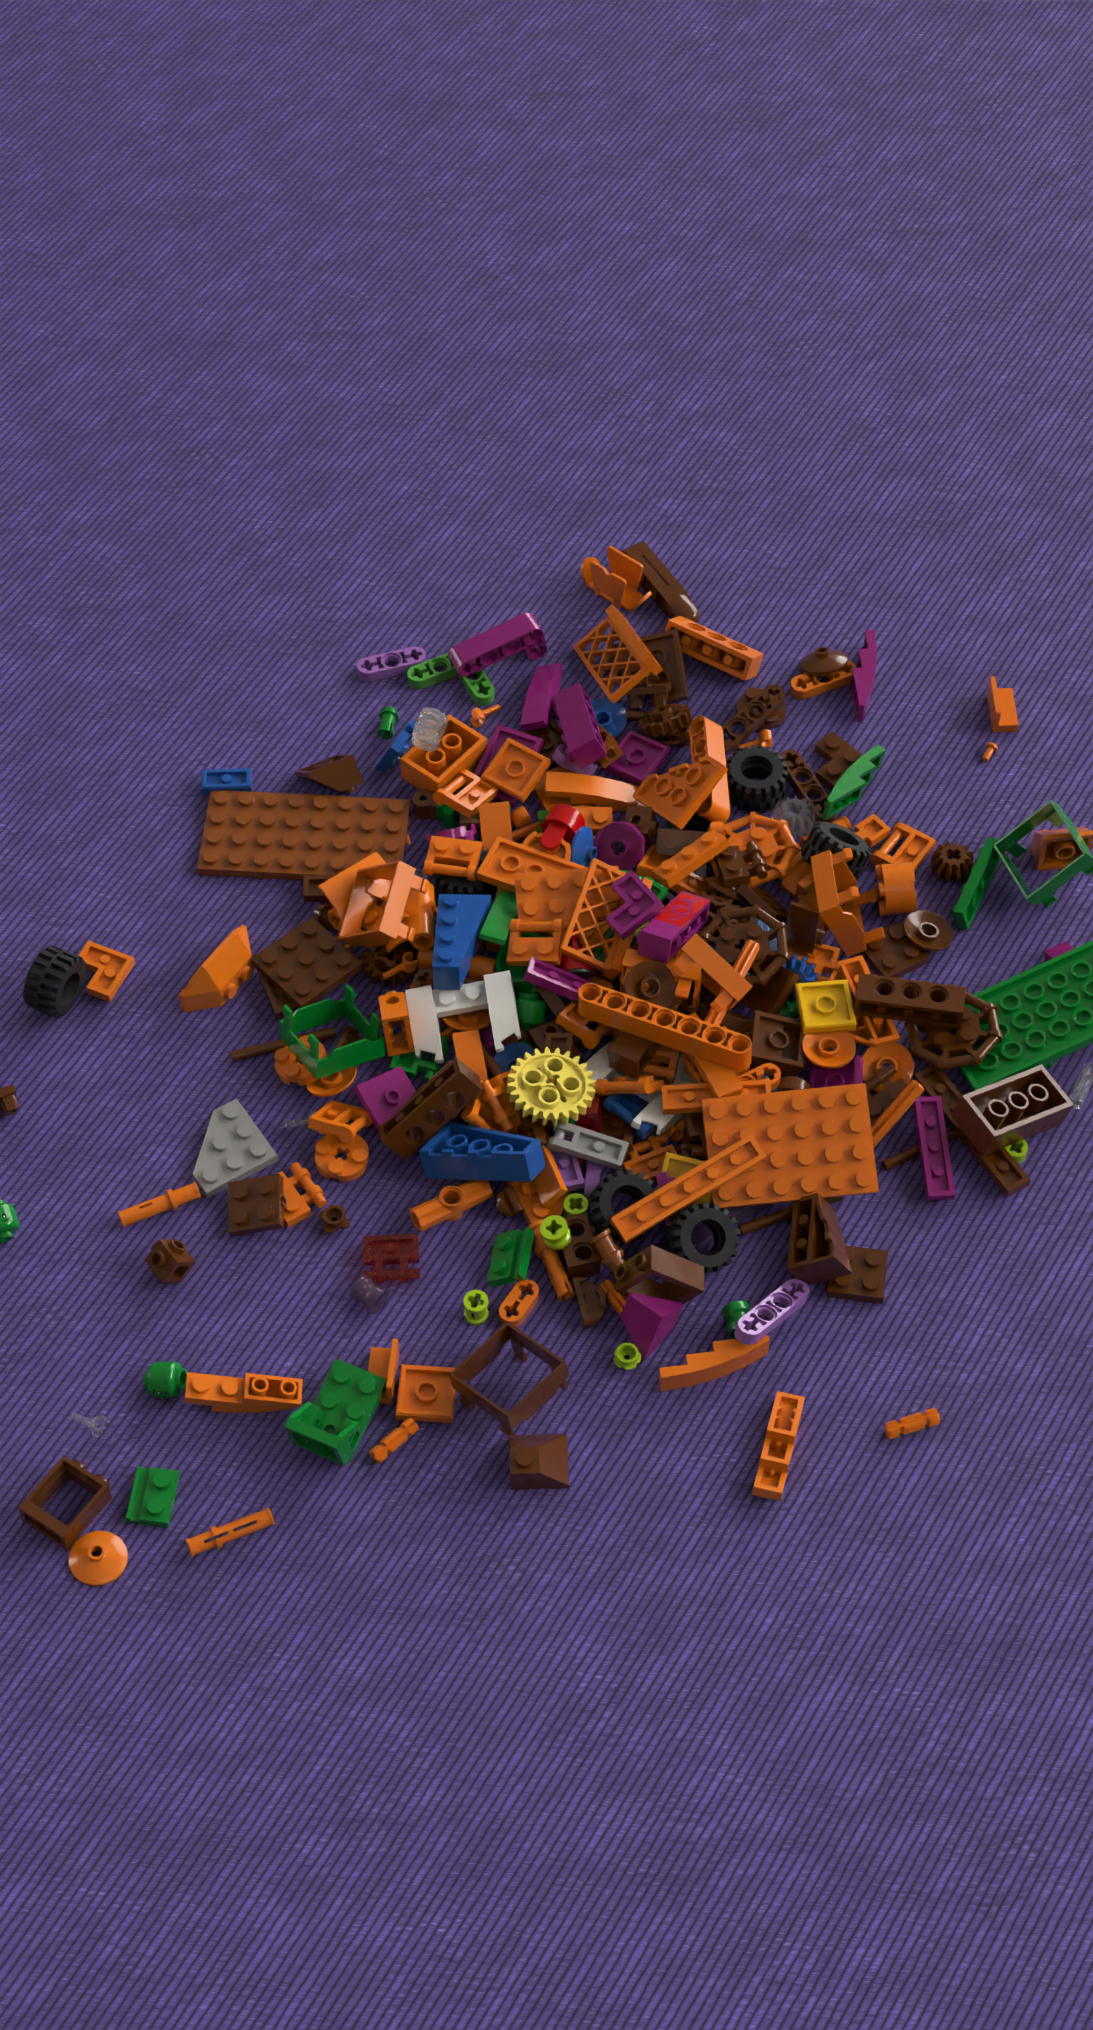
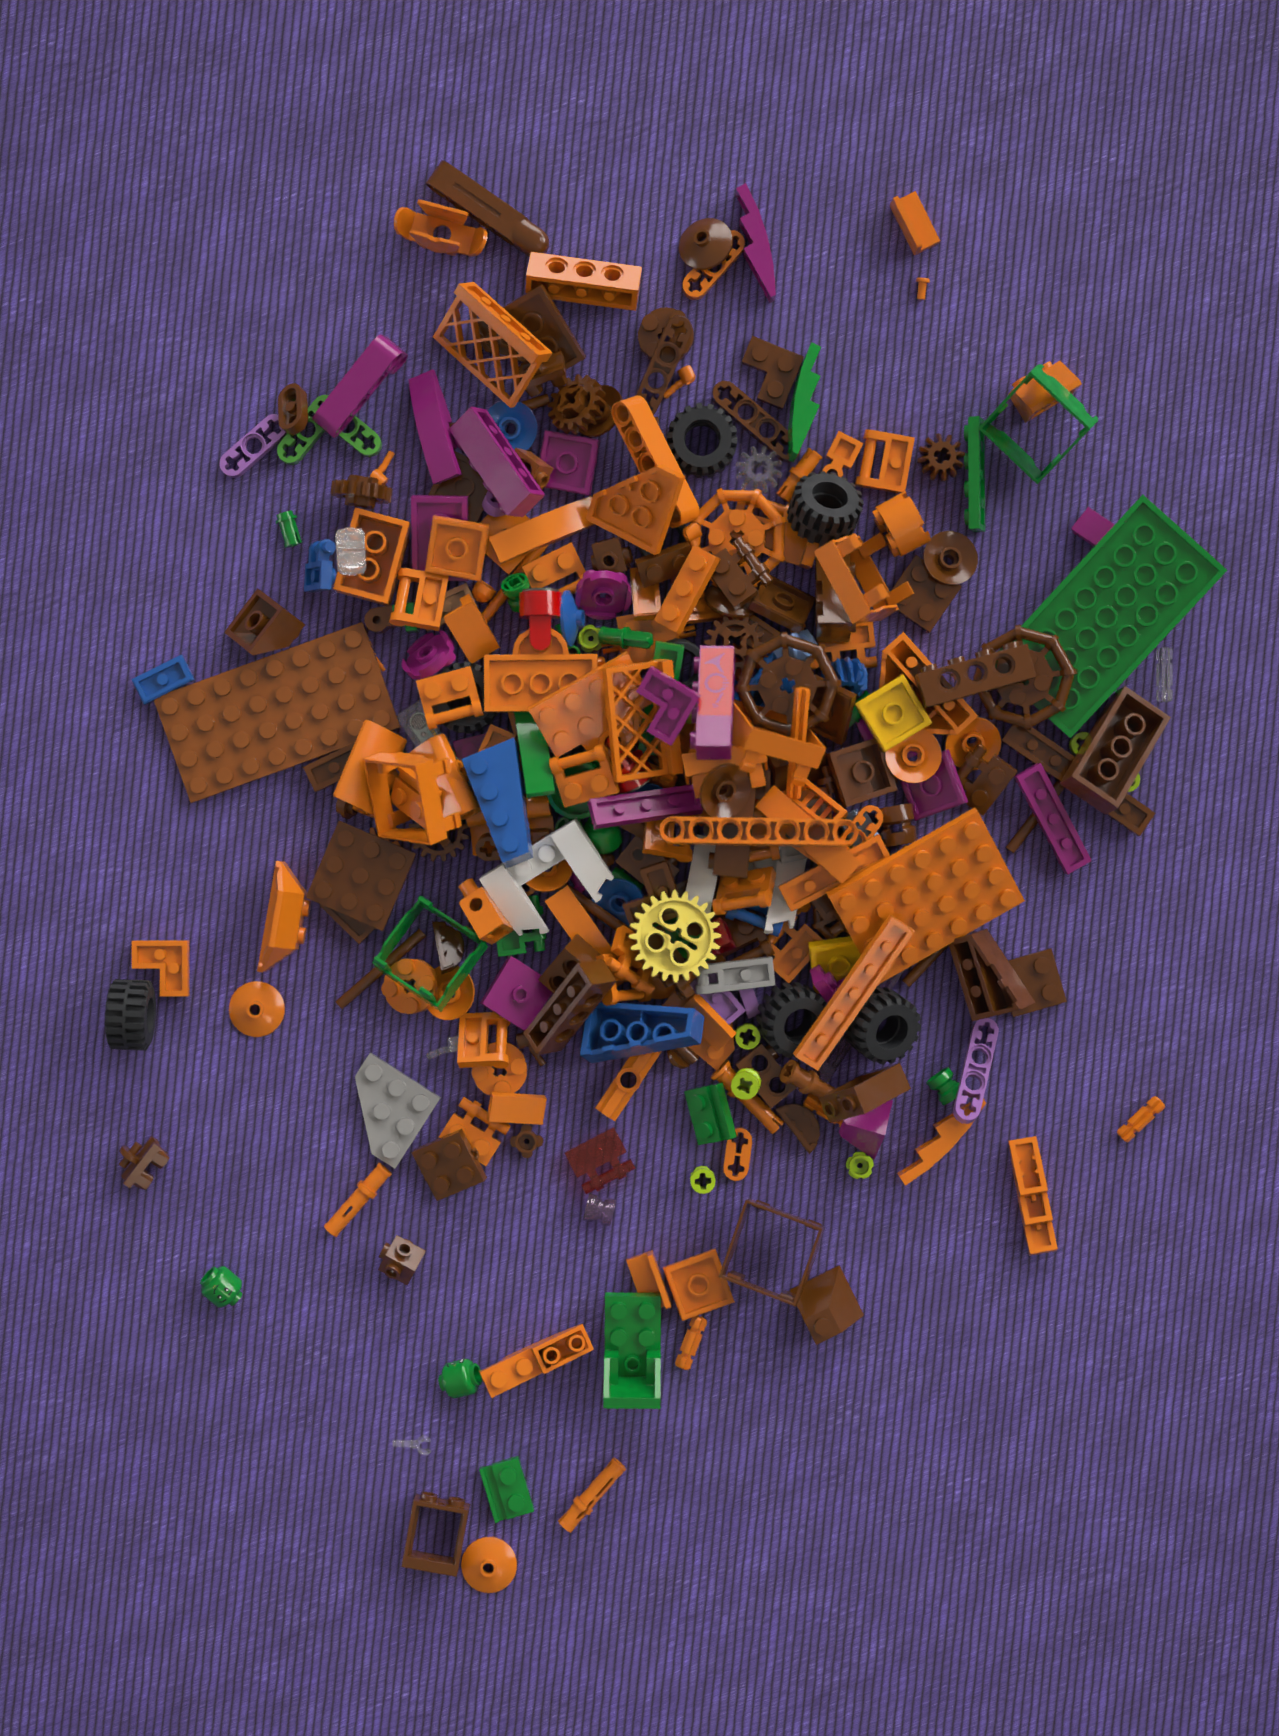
camera: 25 degrees left, 35 degrees up
(163, 1042) = (271, 1009): none -> orange dish
(340, 1185) = (516, 1108): none -> orange tile
(375, 1143) = (523, 1043): none -> reddish brown hand
(406, 966) = (454, 844): orange hand -> none
(436, 647) = (292, 409): none -> reddish brown plate
(461, 707) = (361, 491): none -> reddish brown gear
(896, 1110) = (1004, 797): orange axle -> none

